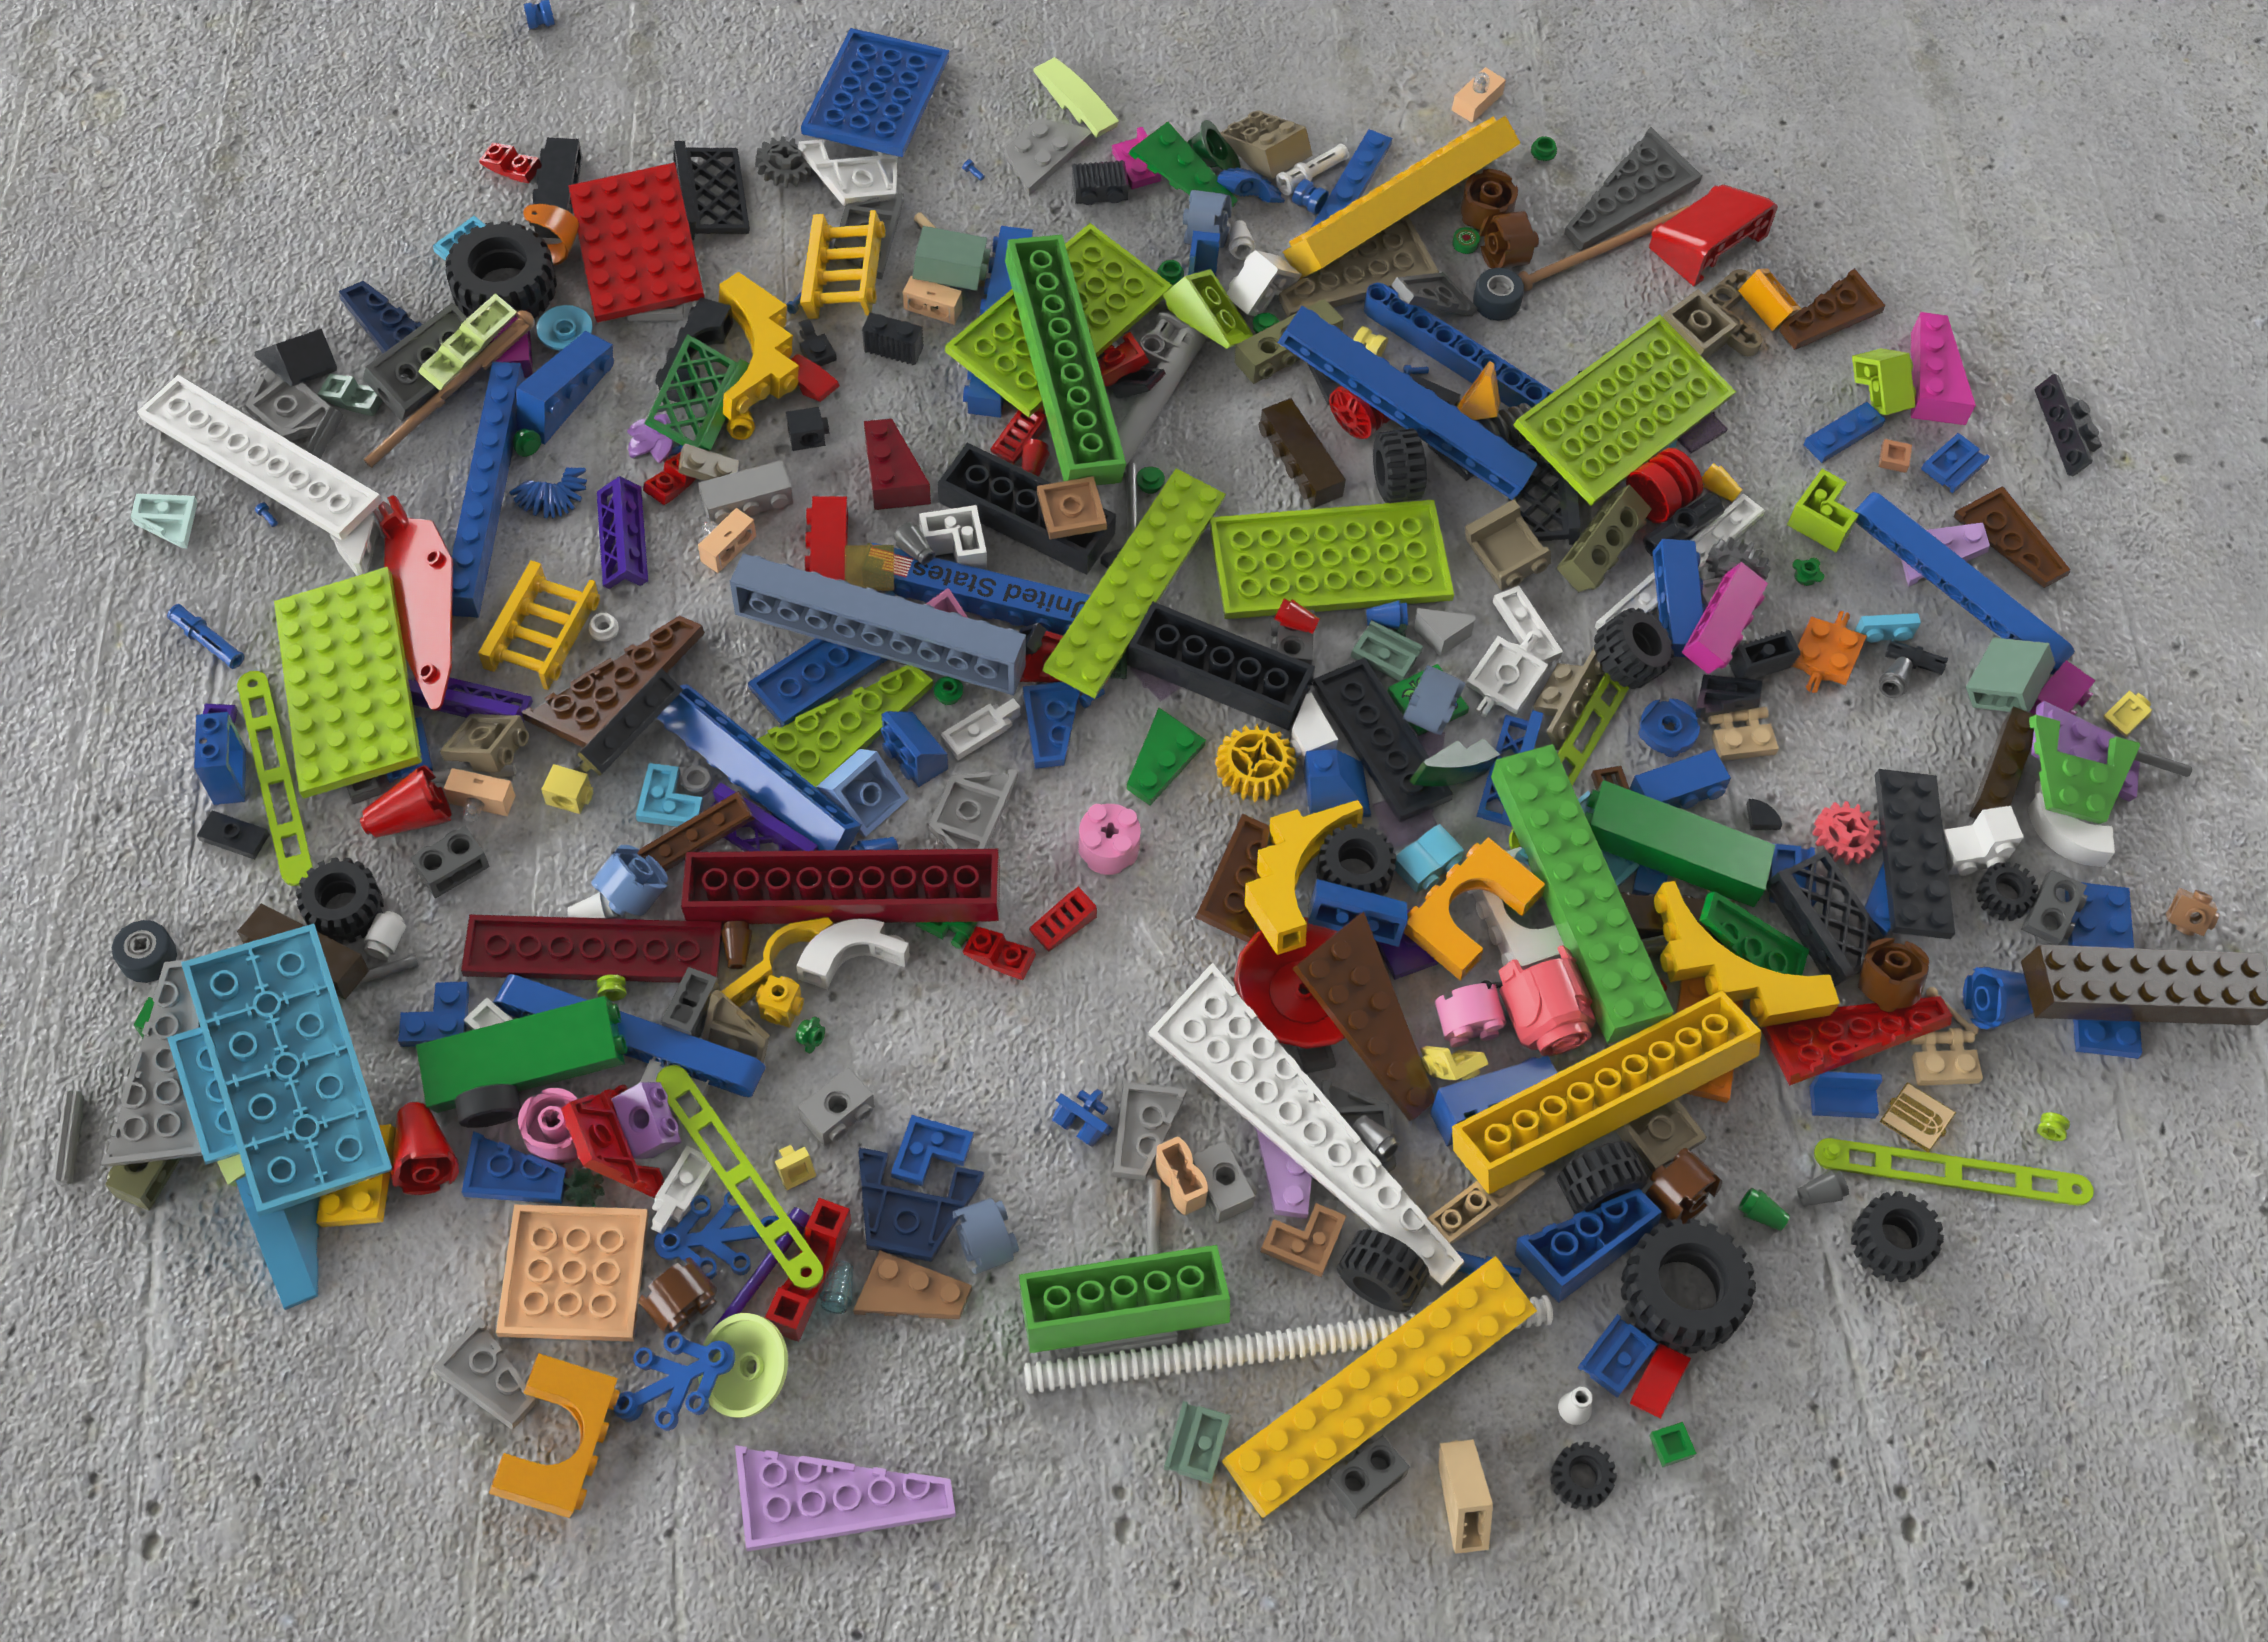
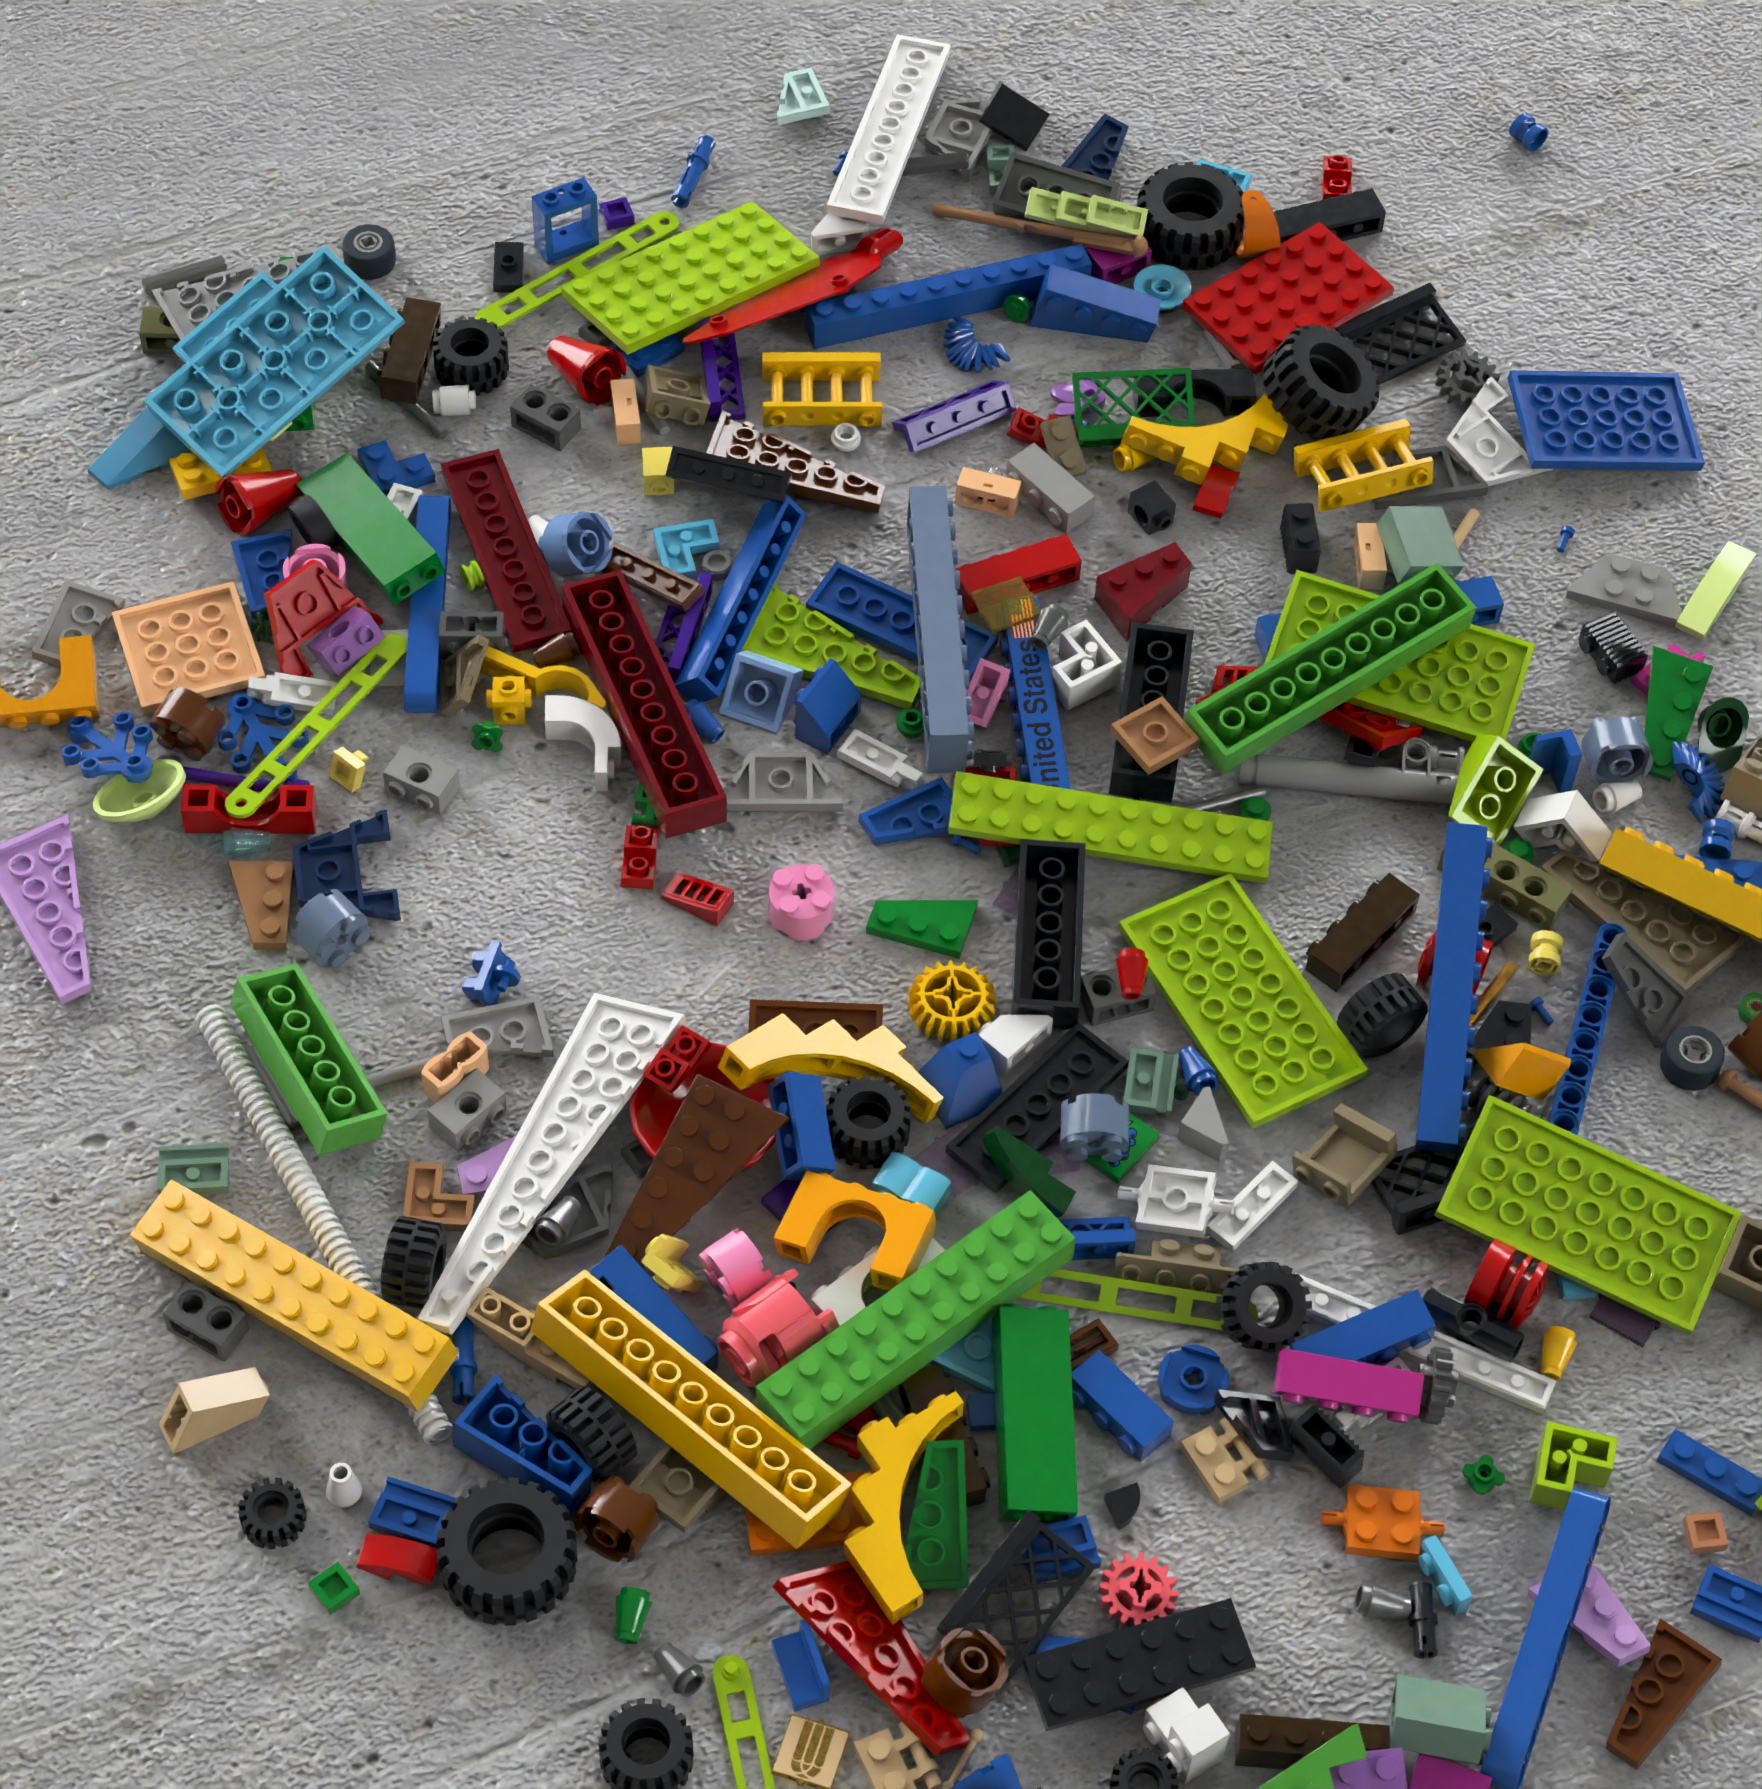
camera: 70 degrees right, 5 degrees down
(751, 252) = (1320, 382): none -> black tyre
(815, 347) = (1259, 487): black plate -> none
(929, 1140) = (412, 858): blue plate -> none
(1253, 986) = (678, 1060): none -> red slope
(1604, 539) = (1460, 1251): olive brick -> none

